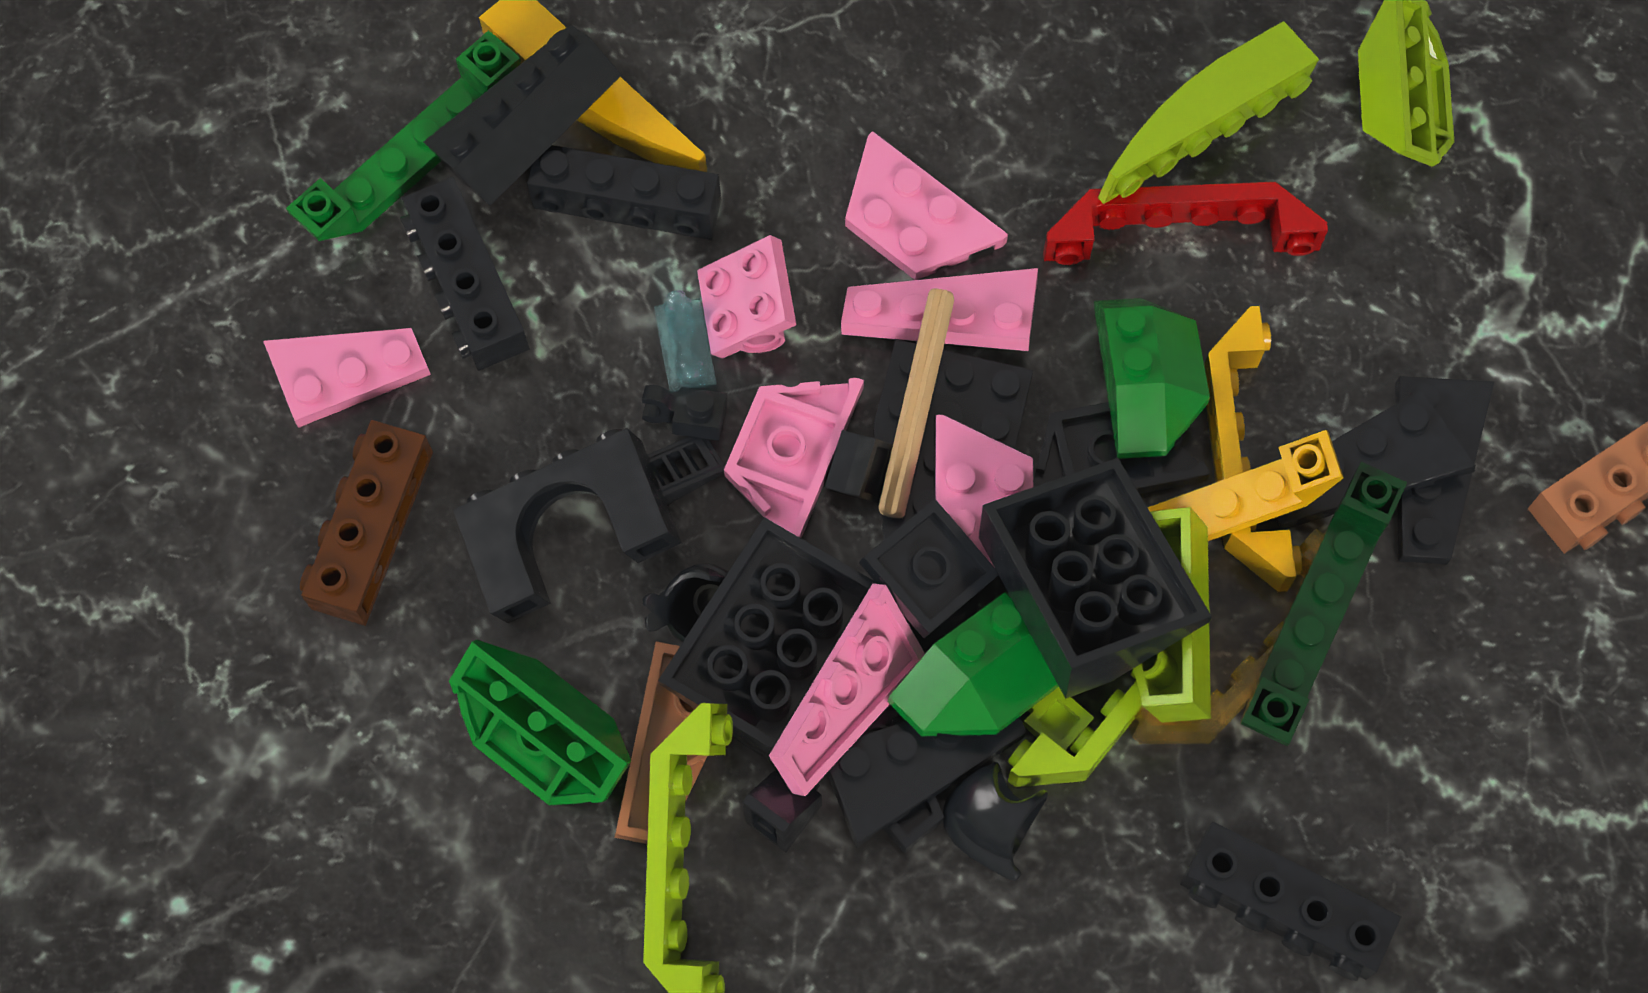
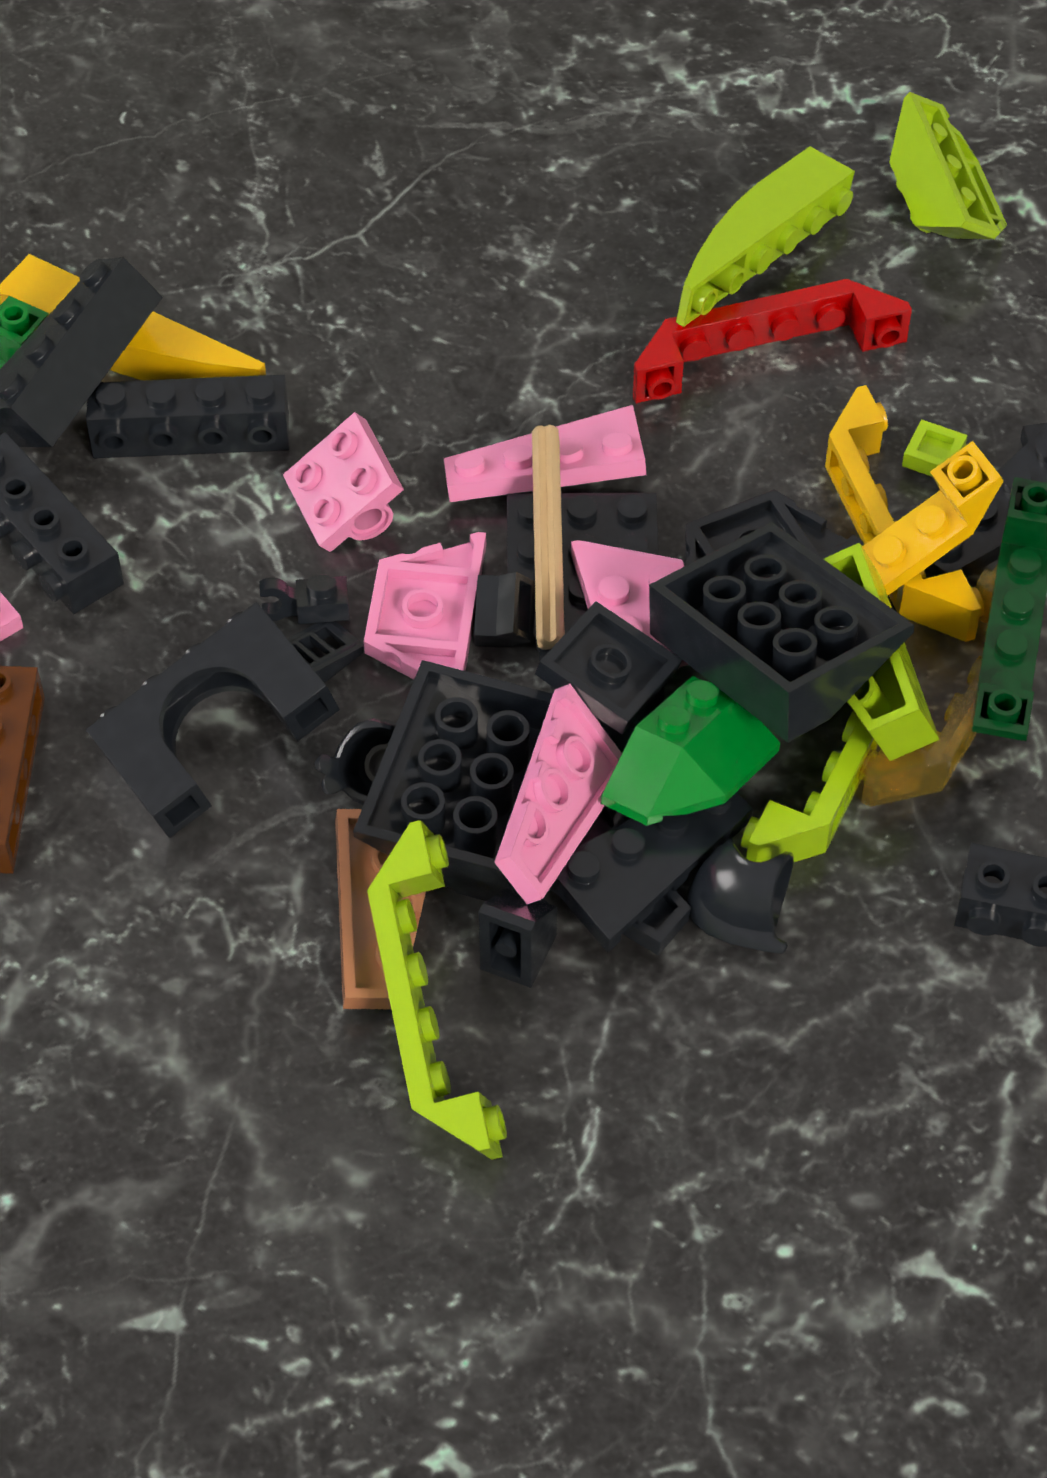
camera: 15 degrees left, 15 degrees down
(538, 726) = (230, 917): green wedge -> none
(684, 342) = (286, 538): clear light blue hinge -> none
(914, 215) = (492, 386): bright pink wing -> none
(1058, 719) = (779, 786): lime plate -> none
(1150, 374) = (774, 463): green wedge -> none
(1307, 384) = (931, 447): none -> lime plate

